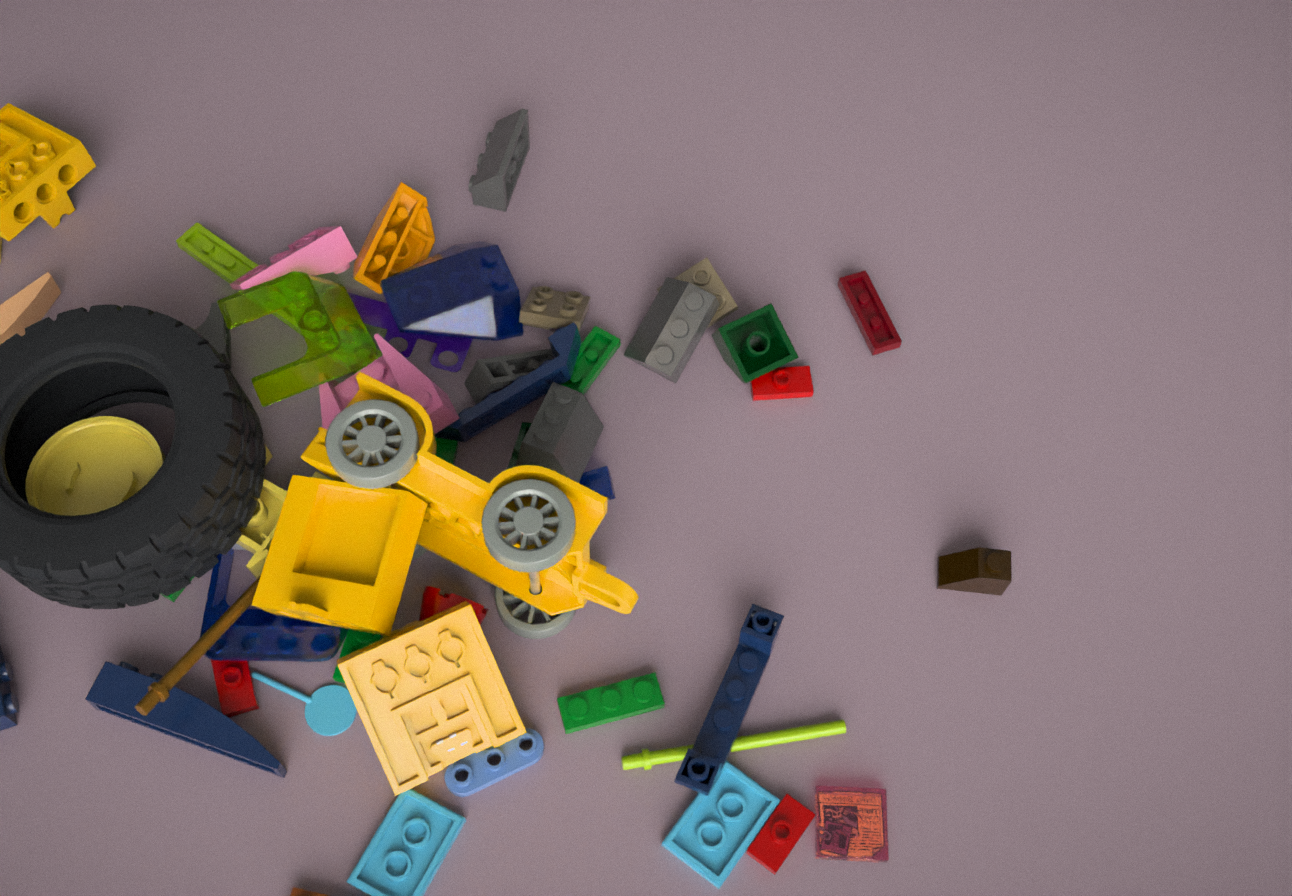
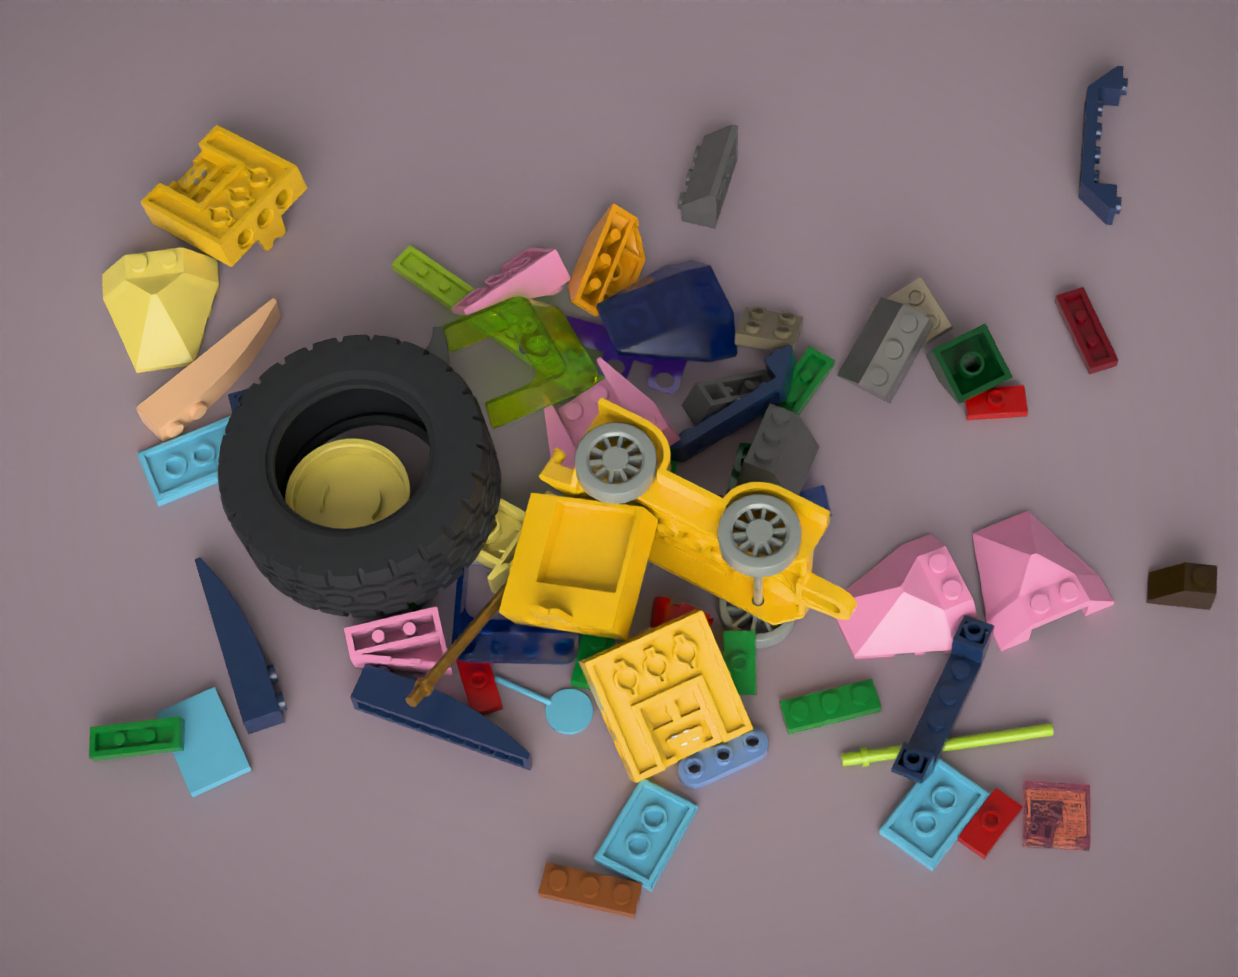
camera: 10 degrees right, 0 degrees up
(145, 635) = (399, 642): none -> bright pink wedge
(516, 655) = (740, 659): none -> green plate
(693, 590) = (908, 603): none -> bright pink wedge
(820, 564) = (1031, 578): none -> bright pink wedge
(877, 186) = (1099, 197): none -> dark blue slope

